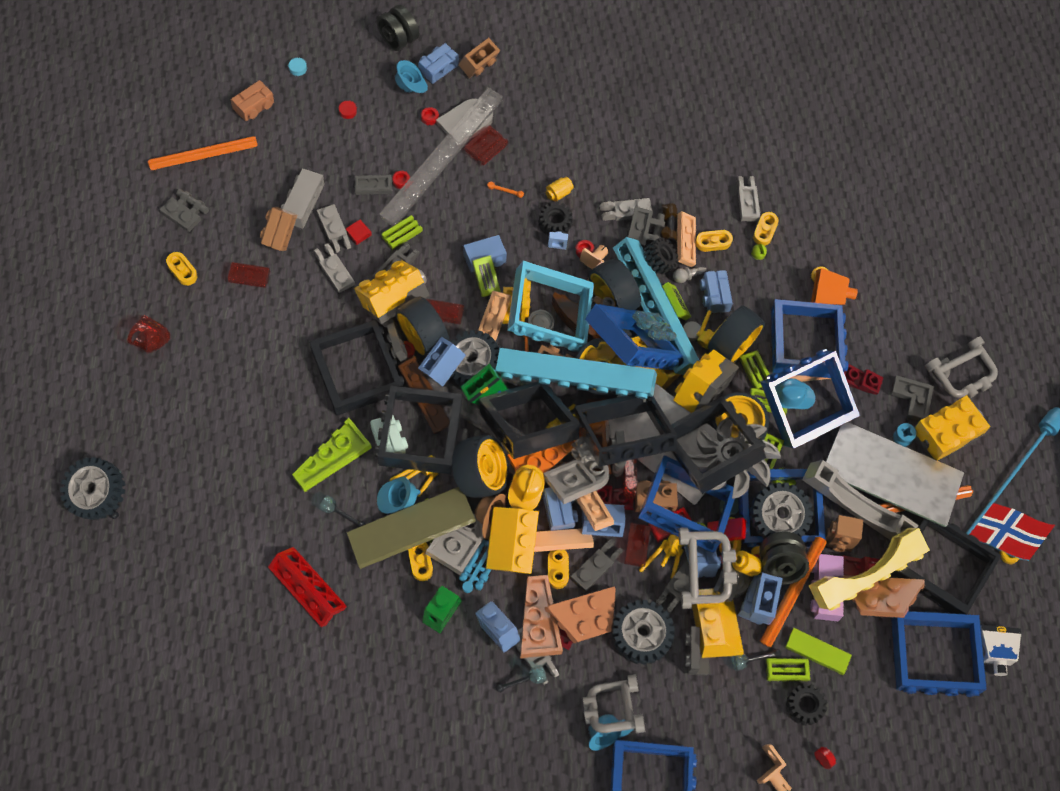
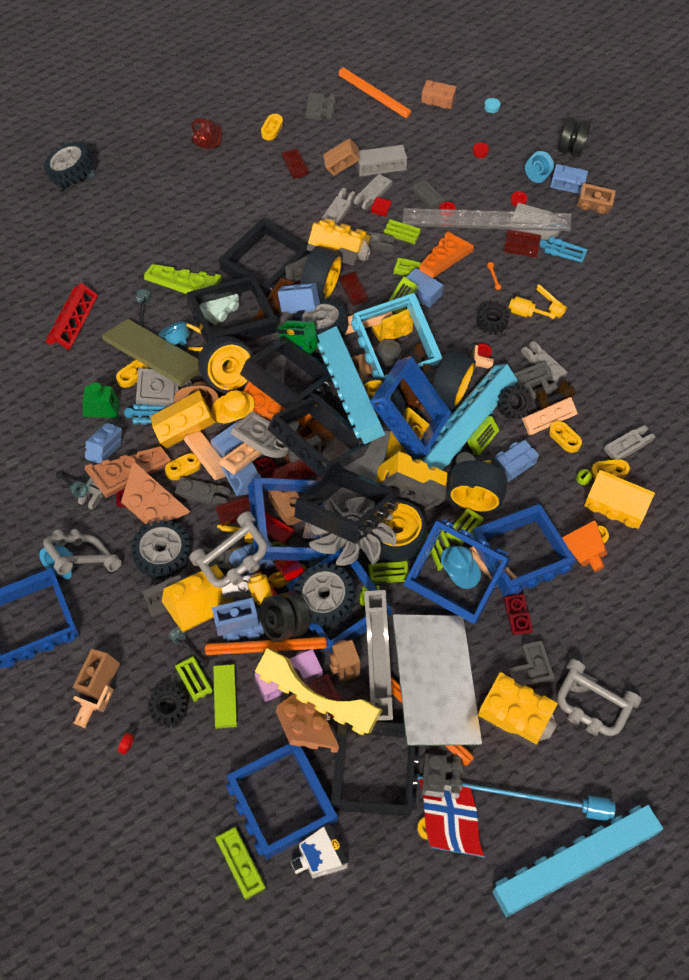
camera: 65 degrees right, 5 degrees down
(456, 255) = (404, 270): none -> lime tile
(461, 213) = (447, 253): none -> orange wing
(514, 124) = (565, 253): none -> dark azure piece
(558, 240) = (473, 328): light blue plate -> none
(576, 164) = (557, 308): none -> yellow plant
(656, 324) = (437, 414): clear light blue plate -> none
(681, 275) = (511, 428): light grey bar -> none
(749, 751) = (96, 674): none -> medium nougat brick
(803, 240) = (619, 499): none -> yellow slope
(901, 438) = (481, 677): dark azure wheel -> none
(973, 523) = (434, 776): none -> dark grey plate
(974, 715) = (240, 863): none -> lime tile

